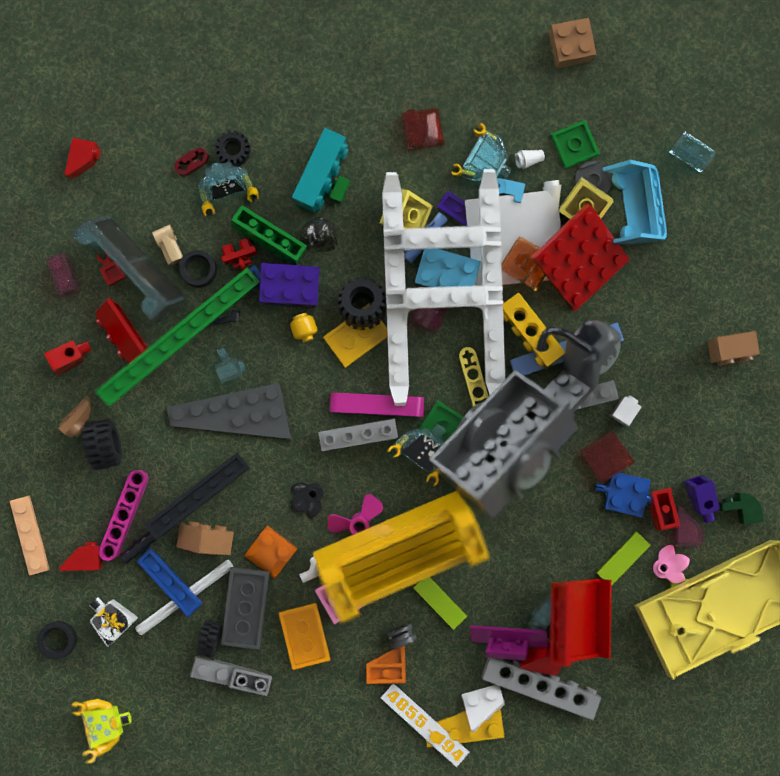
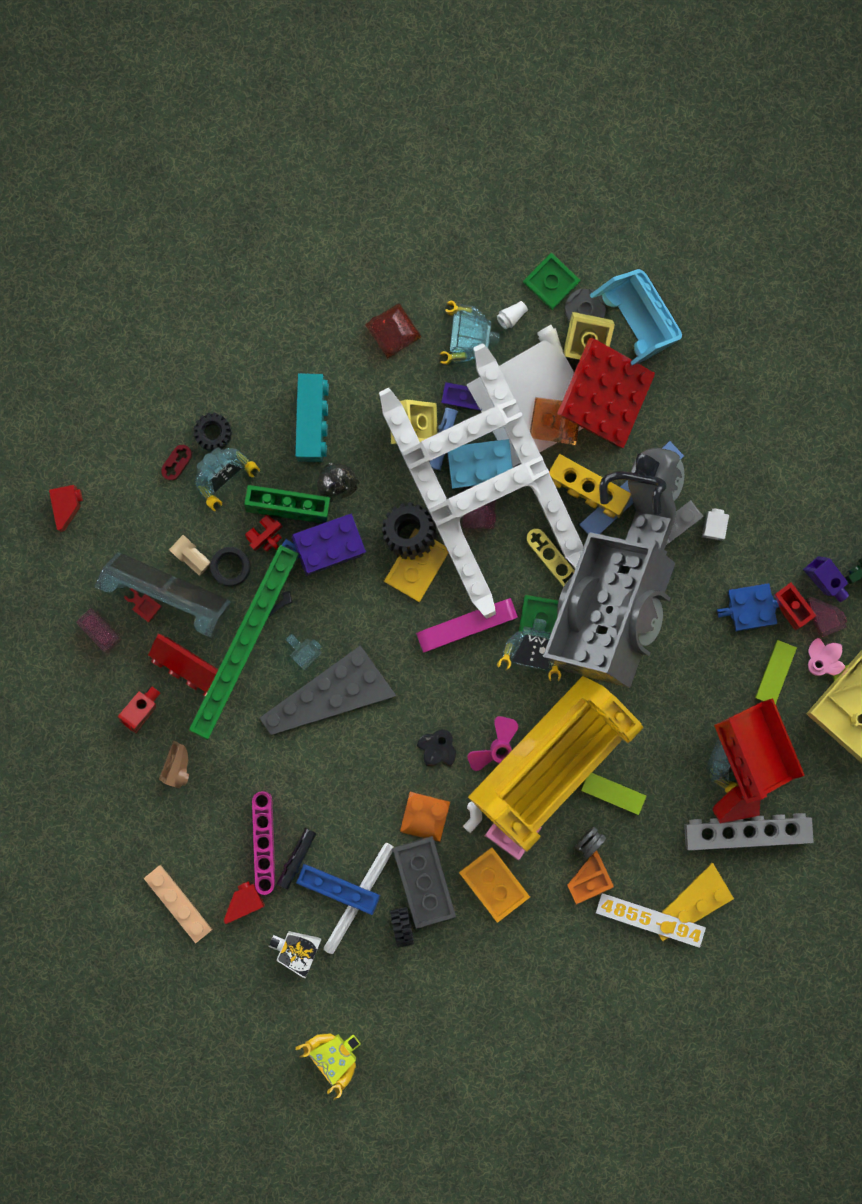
camera: 20 degrees left, 0 degrees up
(41, 640) = (251, 1011): black tyre -> none
(102, 444) = (213, 781): black tyre -> none
(196, 496) = (328, 792): black plate -> none
(204, 539) = (354, 830): medium nougat brick -> none
(231, 675) = (439, 954): light grey slope -> none
(303, 327) = (361, 579): yellow head -> none
(340, 189) = (337, 426): green piece -> none
(358, 435) = (462, 663): light grey brick -> none
(482, 704) = (699, 875): white wing -> none
(508, 642) = (697, 802): magenta bracket -> none
(513, 188) = (508, 352): medium azure leg -> none
(572, 43) = (505, 181): medium nougat brick -> none
(607, 456) = (716, 578): clear red tile -> none
(693, 151) = (671, 239): clear light blue brick -> none
(728, 348) = (797, 415): medium nougat brick -> none

